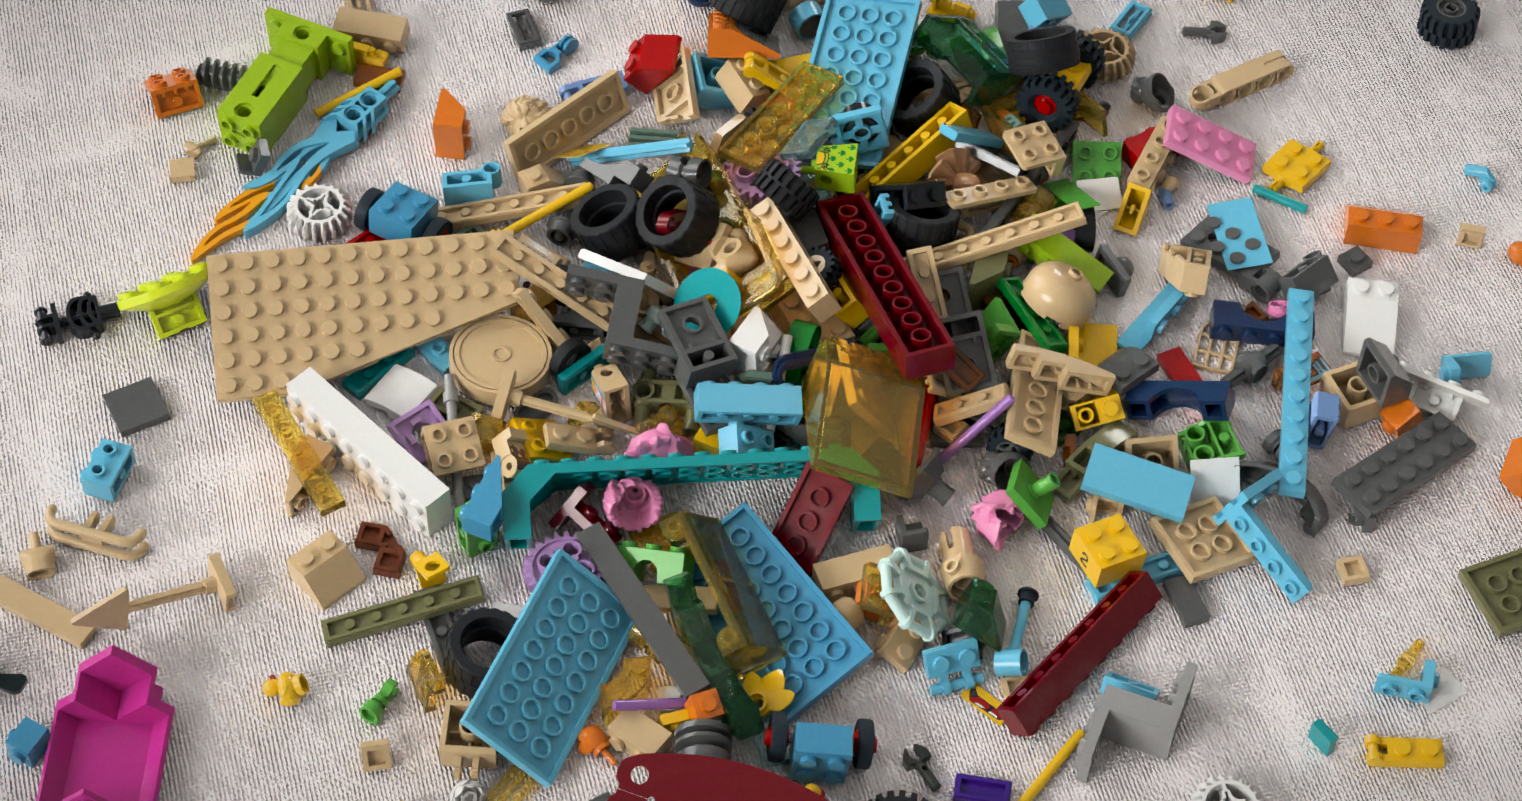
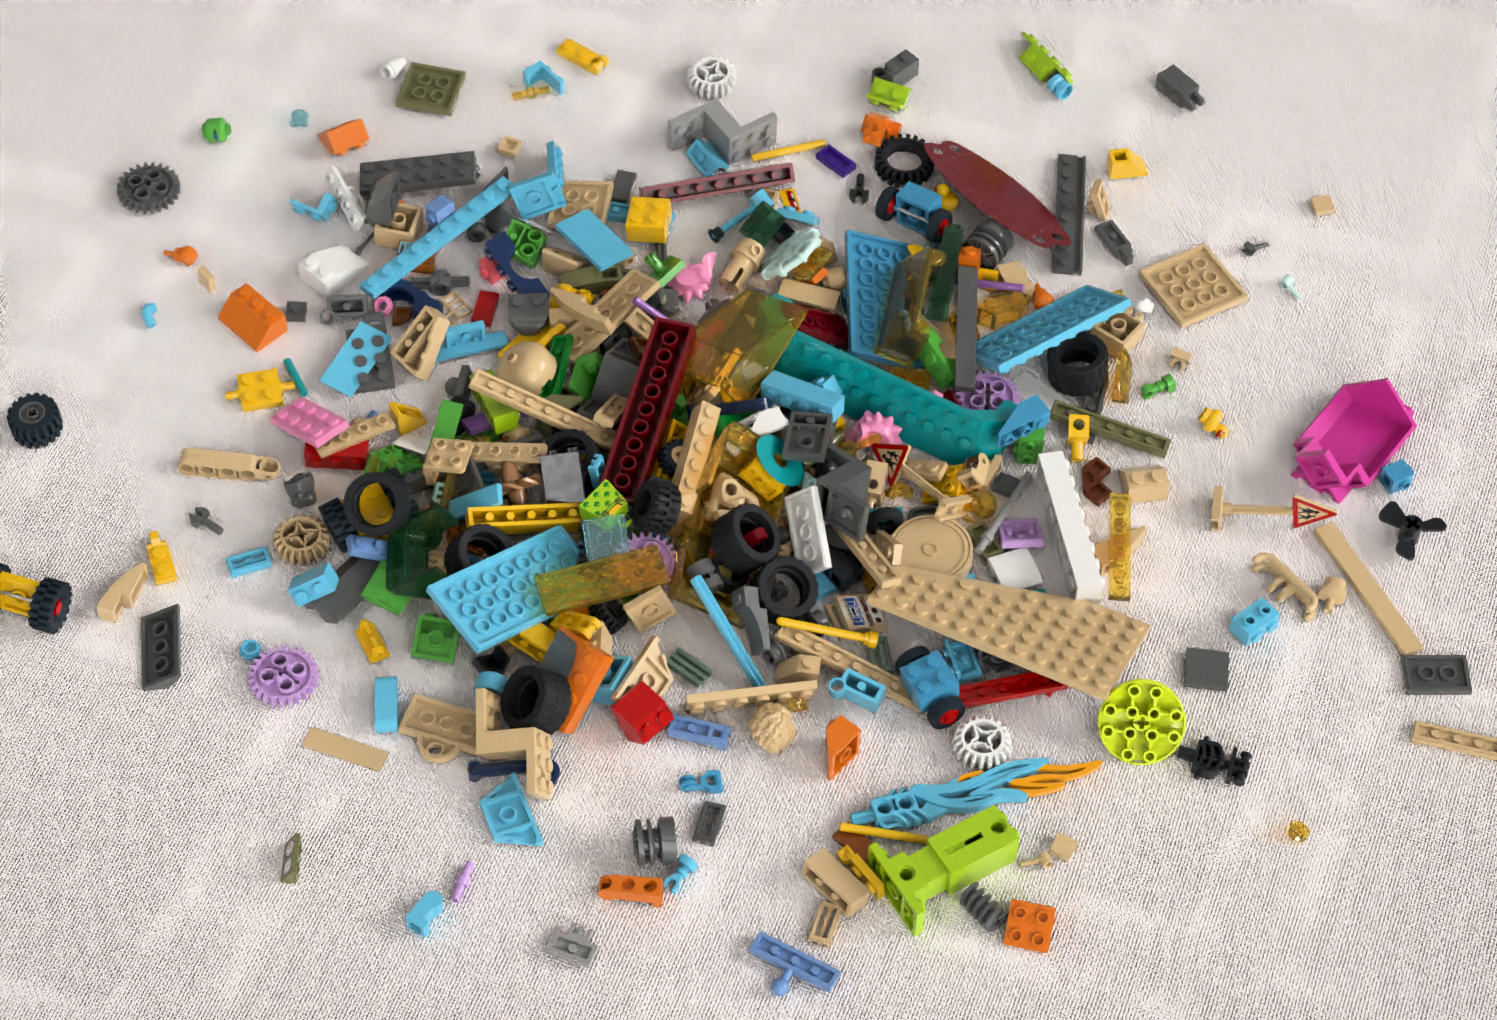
camera: 145 degrees left, 0 degrees up
(256, 161) = (1013, 815): dark grey bracket -> none
(452, 446) = (1014, 496): tan bracket -> none
(580, 151) = (753, 670): yellow sticker -> none
(862, 125) = (556, 534): medium azure piece -> none
(1323, 737) = (621, 80): teal tile -> none

